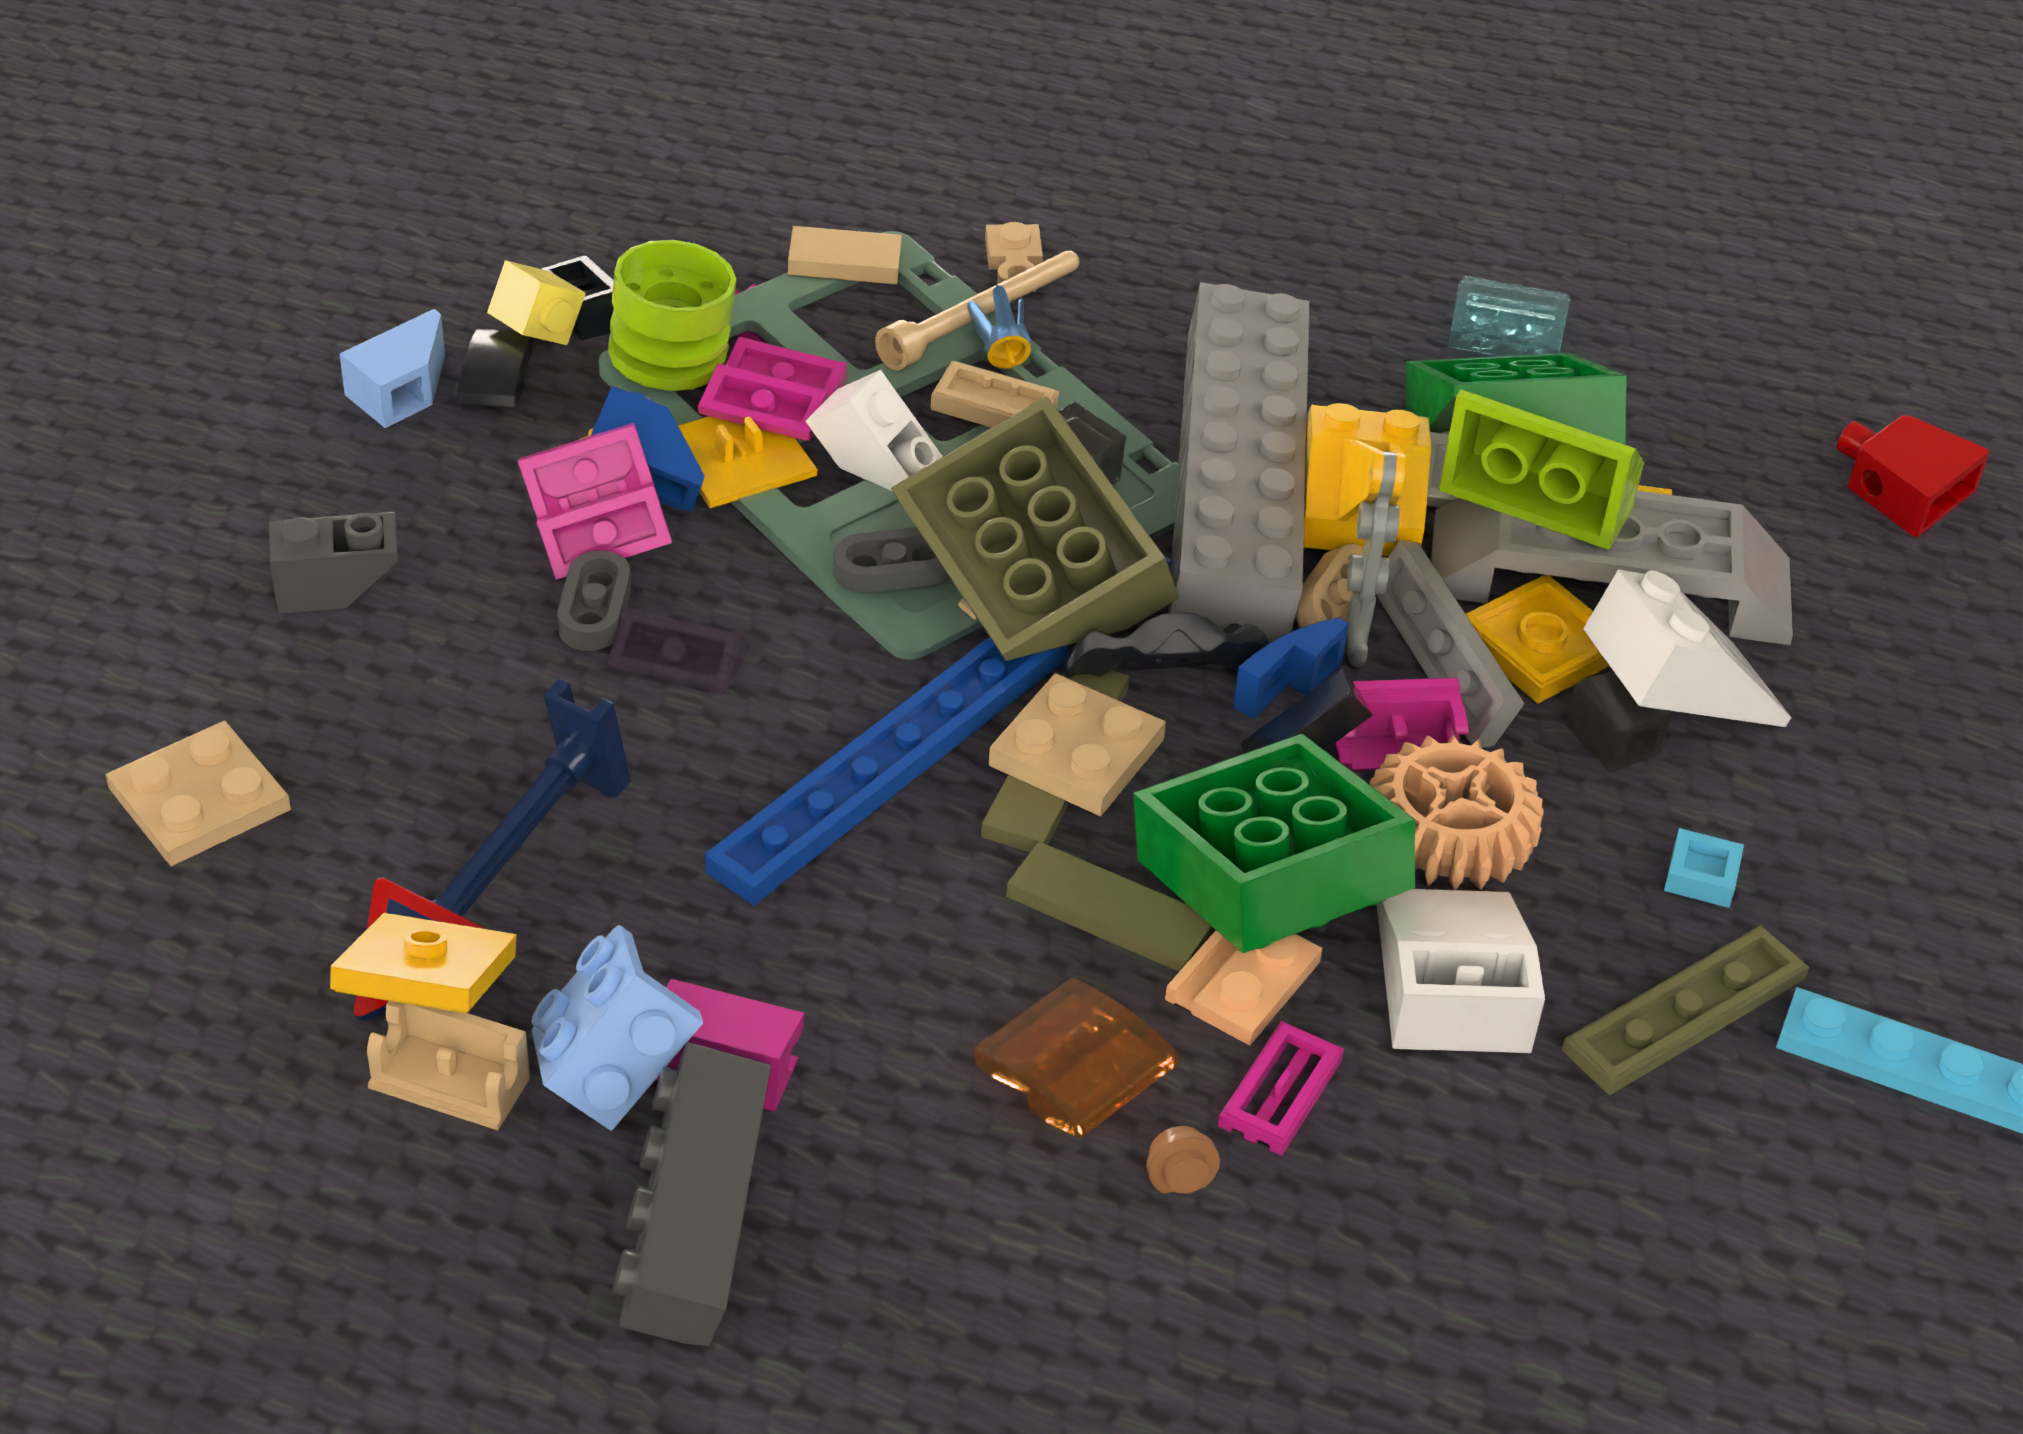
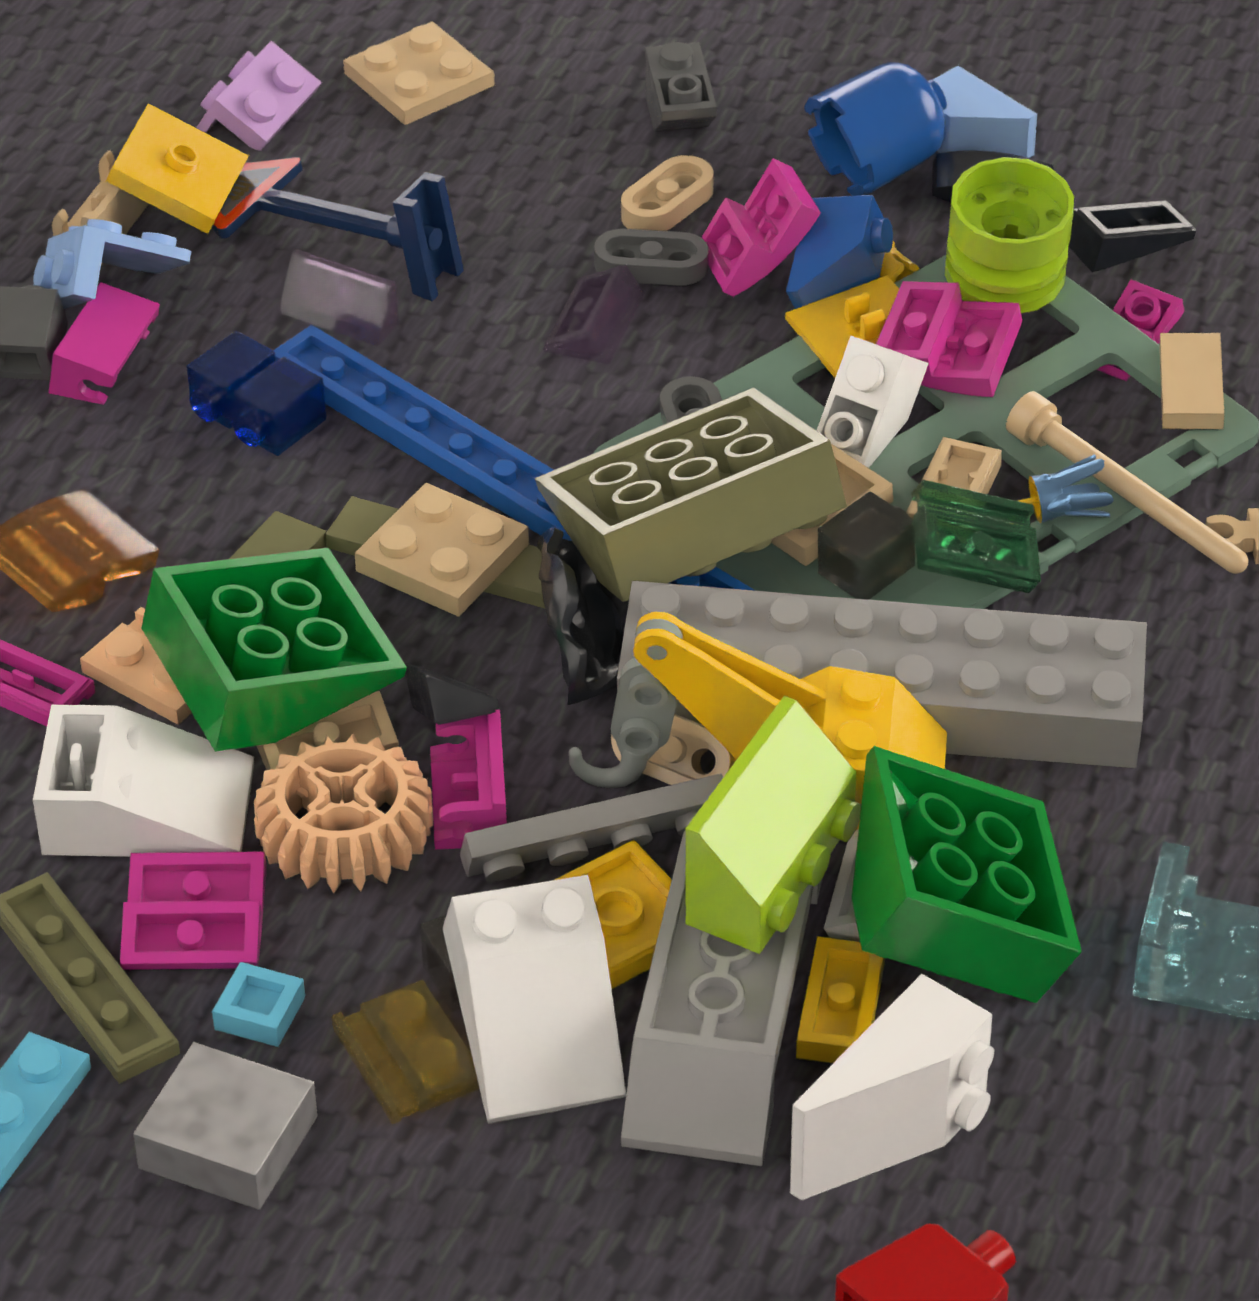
camera: 95 degrees right, 0 degrees up
(228, 932) = (260, 97): none -> lavender bracket
(443, 410) = (878, 125): none -> blue cylinder
(497, 590) = (667, 194): none -> tan plate
(536, 303) = (1087, 172): light yellow brick -> none
(647, 840) = (339, 298): none -> slope
(815, 916) = (262, 409): none -> clear blue piece
(1087, 379) = (975, 537): none -> clear green plate
(1294, 660) = (562, 706): blue slope -> none
(1593, 926) = (193, 910): none -> dark pink slope
(1722, 774) = (407, 1051): none -> clear yellow plate
(1739, 449) = (894, 1090): none -> white slope
(1858, 881) = (226, 1125): none -> flat silver piece

